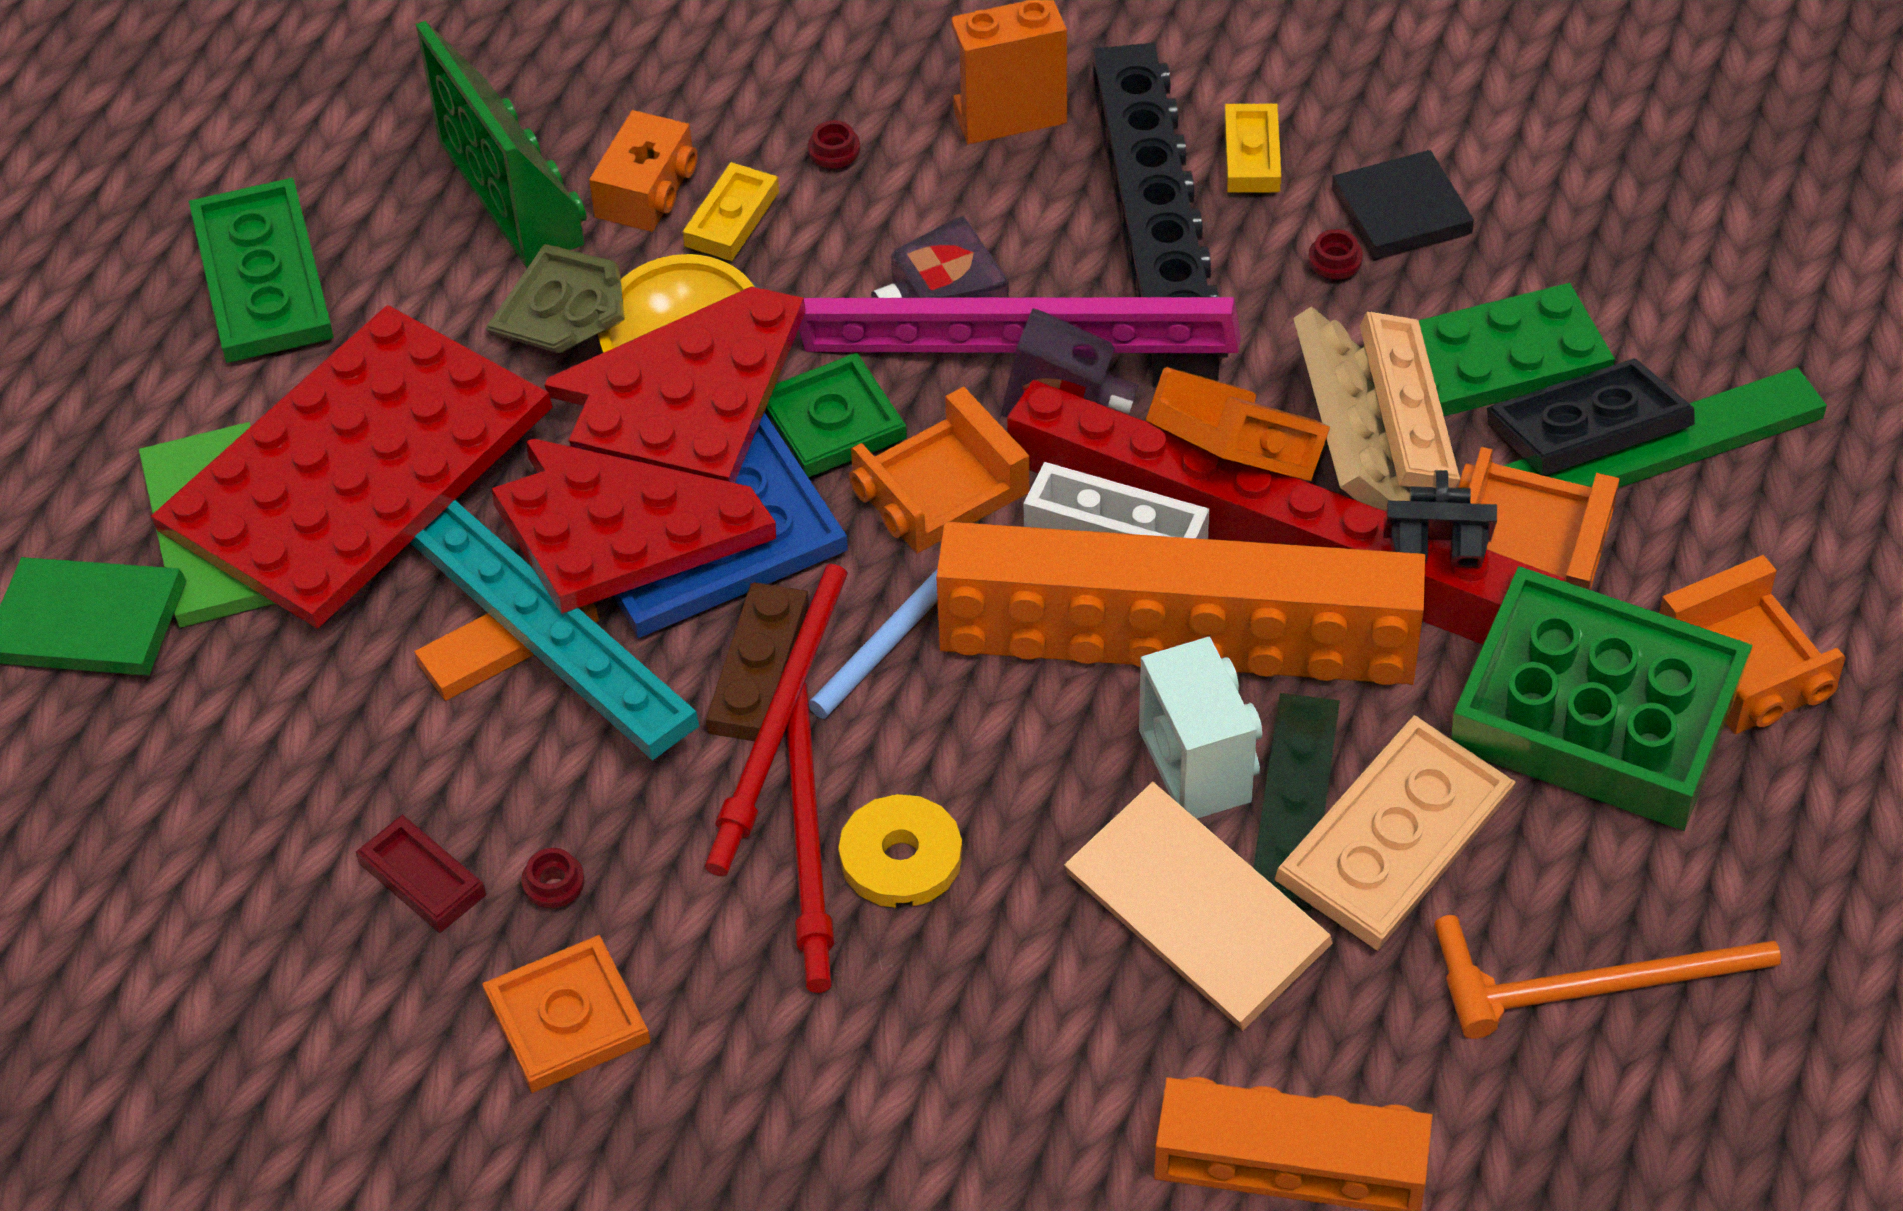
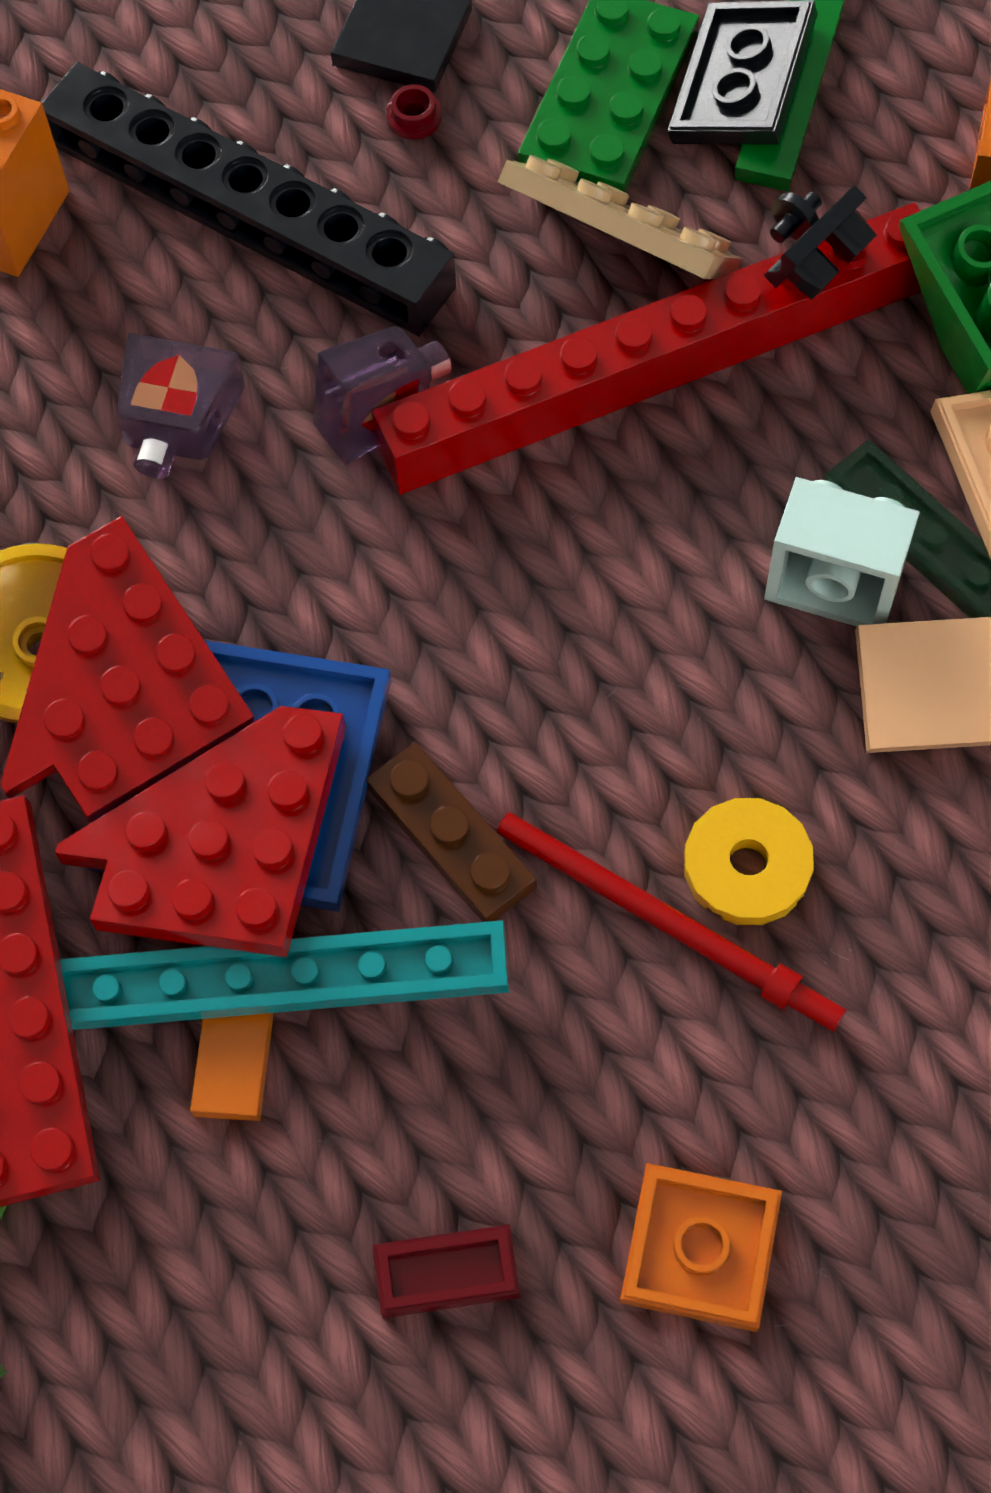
camera: 50 degrees left, 15 degrees up
(549, 865) = (551, 1141): dark red plate -> none
(739, 811) = (608, 962): red bar -> none
(831, 412) = (239, 584): green plate -> none
(875, 649) = (512, 712): light blue bar -> none
(943, 473) = (379, 550): orange panel -> none
(998, 323) = (290, 386): dark pink plate -> none
(1090, 503) = (573, 465): white brick -> none
(1136, 594) = (697, 479): orange brick -> none
(1234, 426) = (614, 297): orange panel -> none
(1252, 148) = (244, 83): yellow plate -> none
(1408, 400) = (639, 172): light nougat tile -> none
(1545, 518) = (829, 163): orange panel -> none

